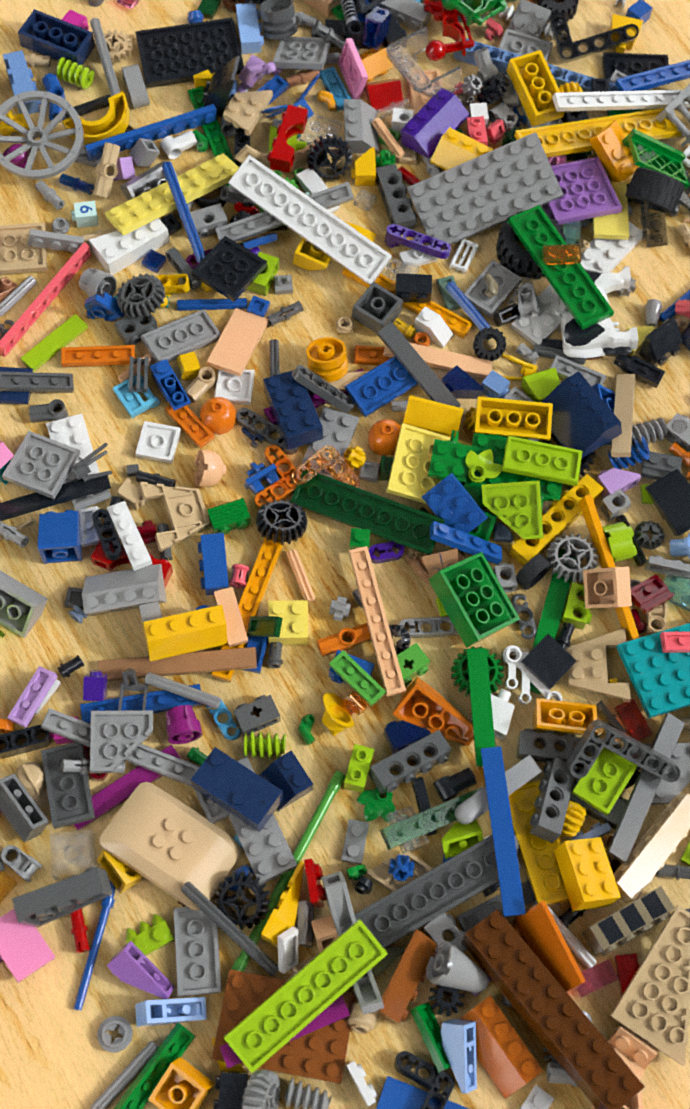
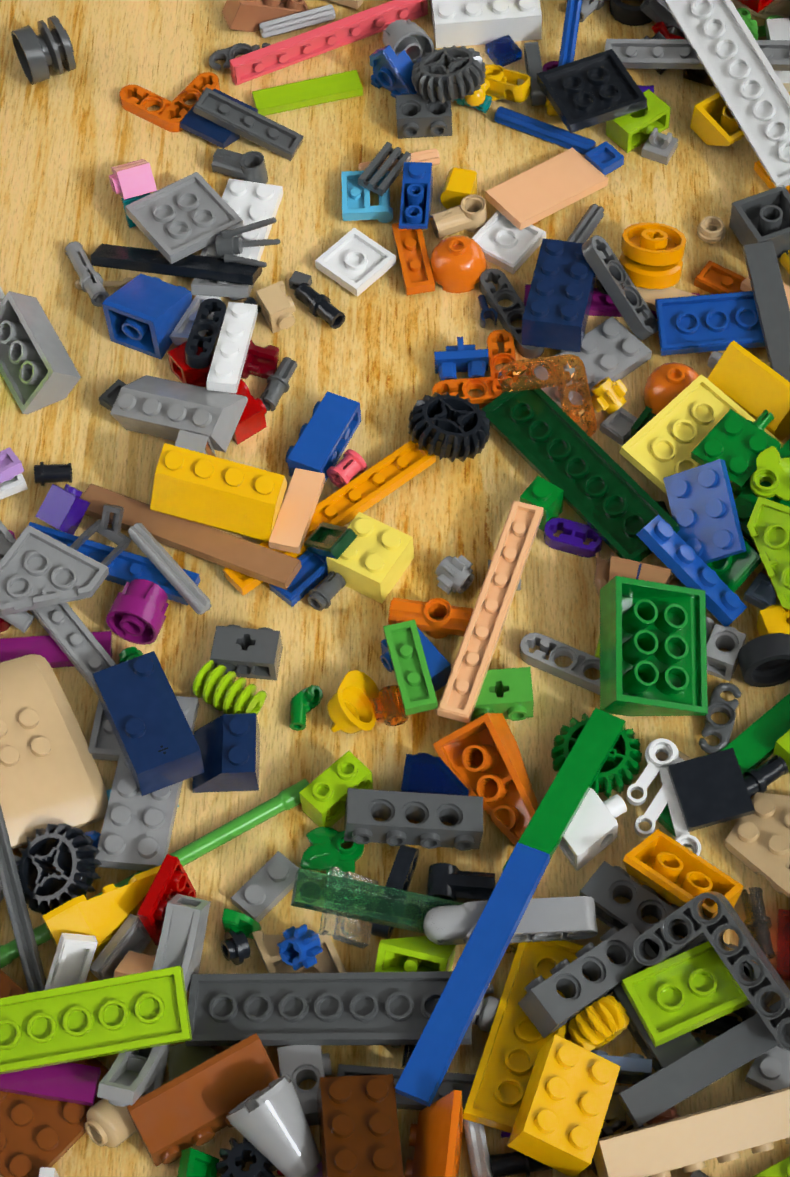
camera: 40 degrees right, 10 degrees down
(77, 614) = (104, 416): sand blue bush -> none
(97, 355) = (348, 127): orange plate -> none
(171, 224) = (553, 18): black tile -> none
(181, 336) = (476, 149): light grey tile -> none
(184, 510) = (329, 358): tan wing -> none
(209, 219) = (602, 24): light grey brick -> none
(209, 468) = (398, 320): light nougat cylinder -> none
(223, 727) = (194, 646): dark azure piece -> none
(229, 516) = (385, 390): green brick -> none
(259, 240) = (661, 80): blue tile -> none
(295, 307) = (636, 181): dark grey pin -> none
(300, 576) = (431, 511): light nougat axle -> none
(400, 632) = (515, 642): black gear -> none

